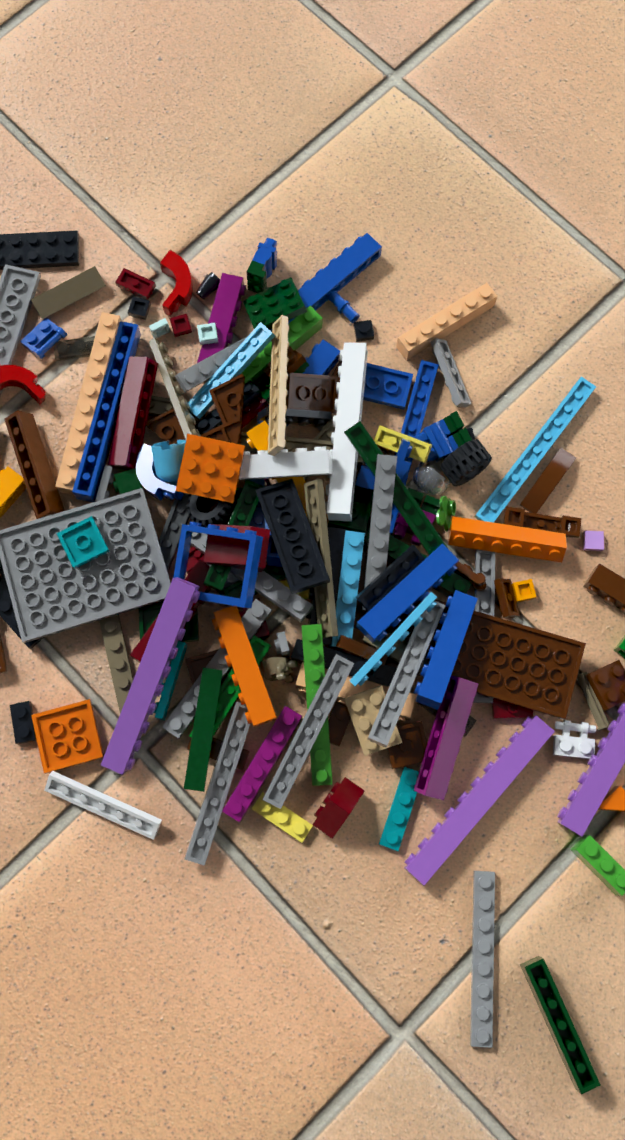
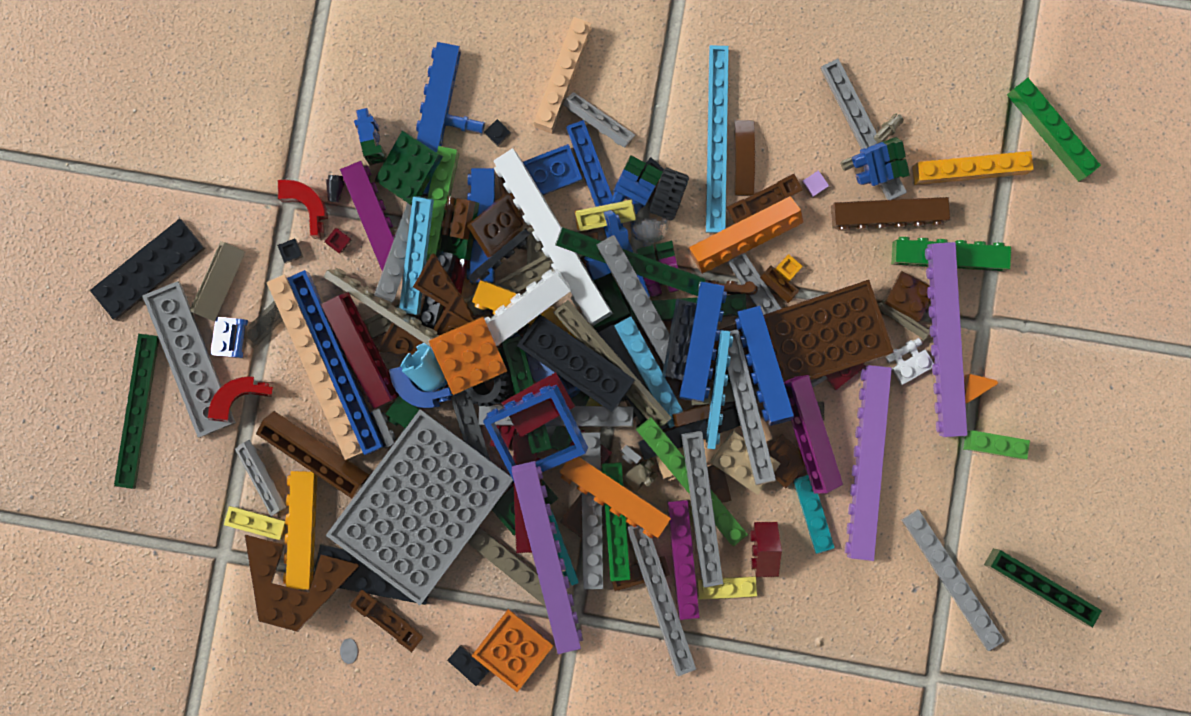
camera: 40 degrees left, 10 degrees up
(82, 542) = (407, 491): teal plate -> none
(102, 805) = (581, 682): white plate -> none
(135, 284) = (269, 231): dark red plate -> none
(159, 328) = (322, 257): light aqua tile -> none
(203, 729) = (619, 568): dark green tile -> none
(207, 333) = (370, 234): light aqua tile -> none
(278, 389) = (470, 243): tan plate -> none
(446, 510) = (680, 242): bright green plate -> none

